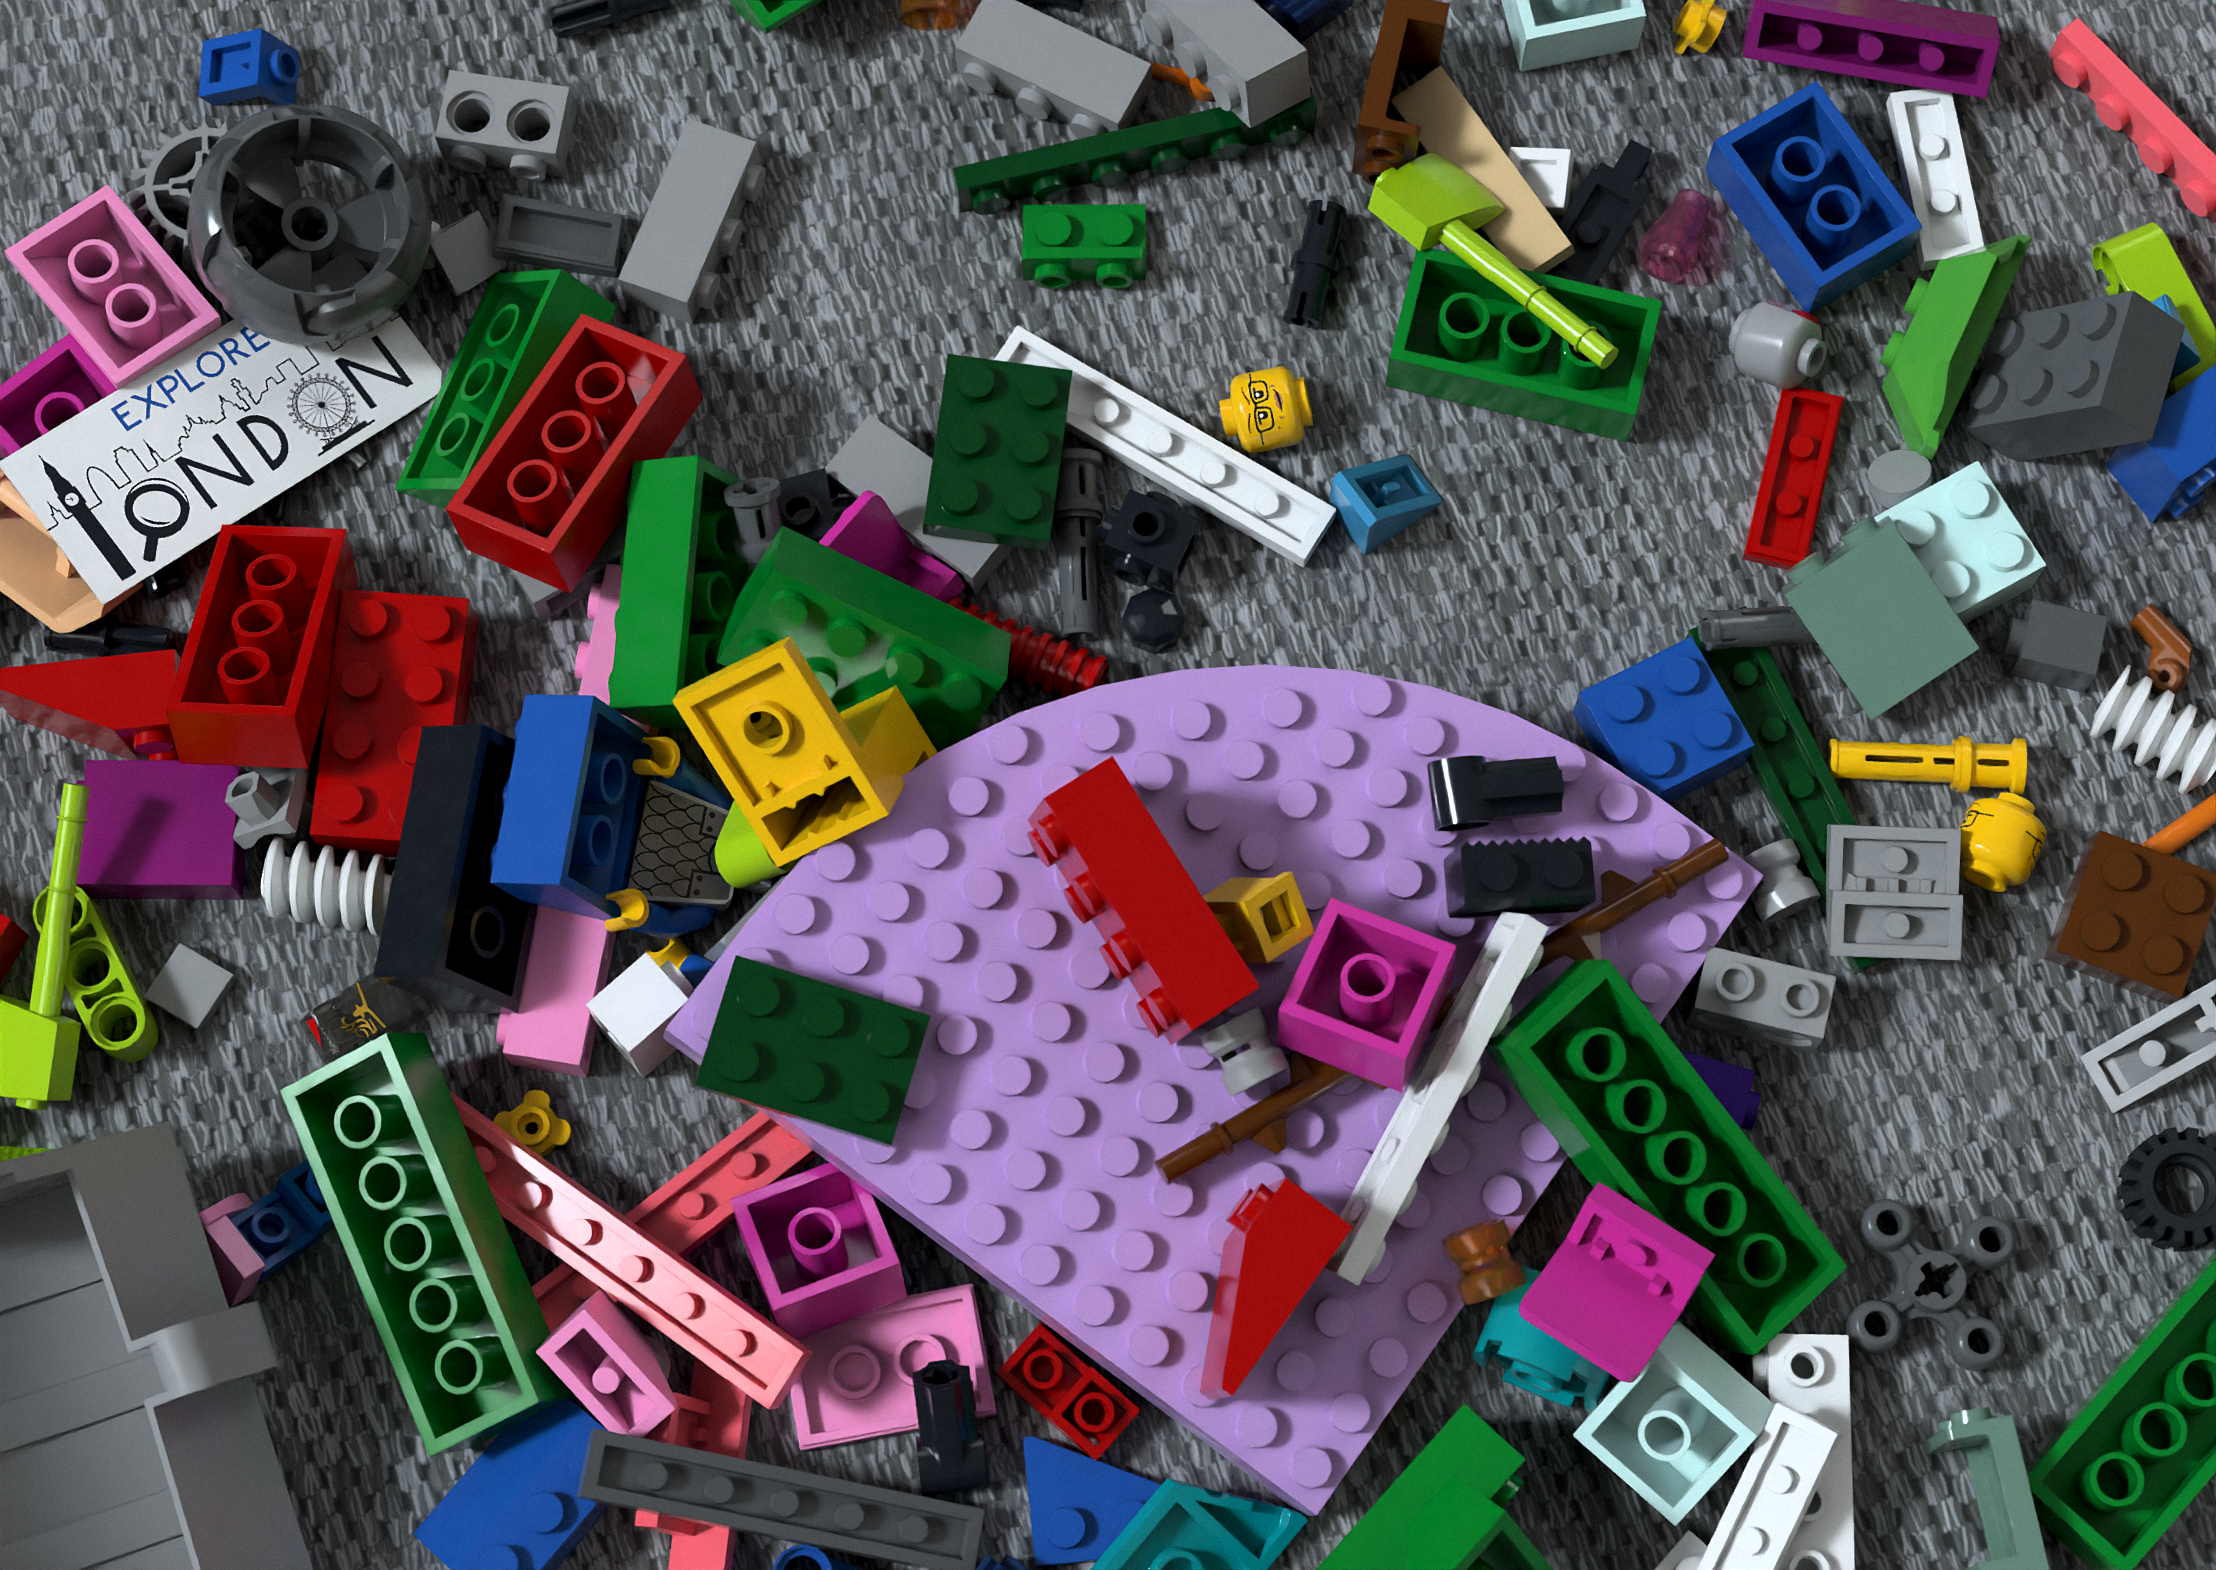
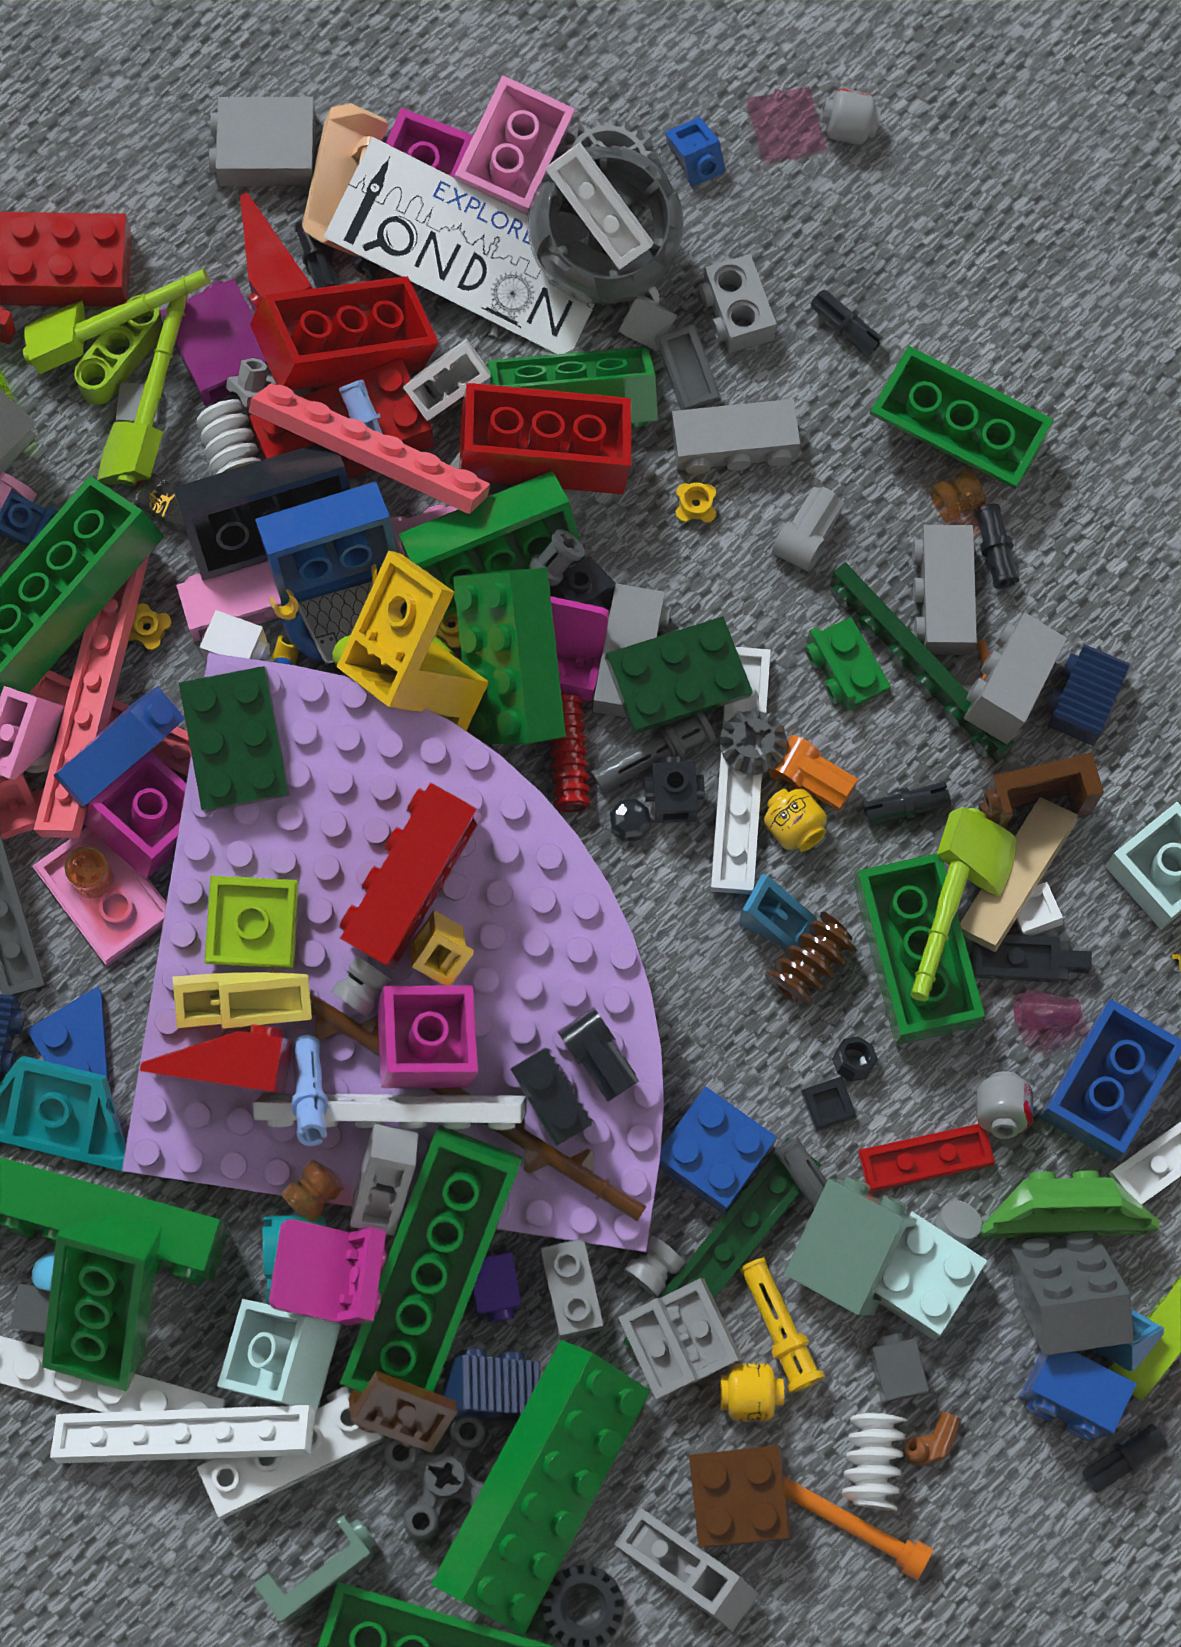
camera: 60 degrees right, 0 degrees up
(262, 1023) = (134, 445): none -> lime piece
(295, 204) = (599, 205): none -> white plate
(410, 538) = (446, 379): none -> white torso
(416, 675) = (359, 404): none -> light blue axle
(466, 682) = (370, 448): none -> coral plate
(709, 1229) = (119, 746): none -> blue slope
(748, 304) = (696, 491): none -> yellow plate
(852, 1360) = (86, 864): none -> clear orange wheel
(878, 203) = (805, 536): none -> light grey piece
(949, 1442) = (72, 944): black piece -> none
(1067, 1392) = (131, 1002): red slope -> none
(1077, 1158) = (252, 922): none -> lime tile
(1158, 423) = (746, 758): none -> dark grey gear
(1180, 1225) = (241, 999): none -> light yellow slope
(1204, 364) = (809, 771): none -> orange piece
(1382, 1190) = (309, 1102): none -> light blue pin
(1467, 482) = (811, 959): none -> reddish brown piece
(1527, 1150) = (384, 1179): none -> light grey brick
(1623, 497) = (854, 1058): none -> black tile
(1664, 561) = (828, 1104): none -> black tile
(1838, 1287) = (402, 1411): none -> reddish brown bracket
(1848, 1160) = (490, 1385): none -> dark blue brick
(2012, 1159) = (541, 1487): none -> green brick

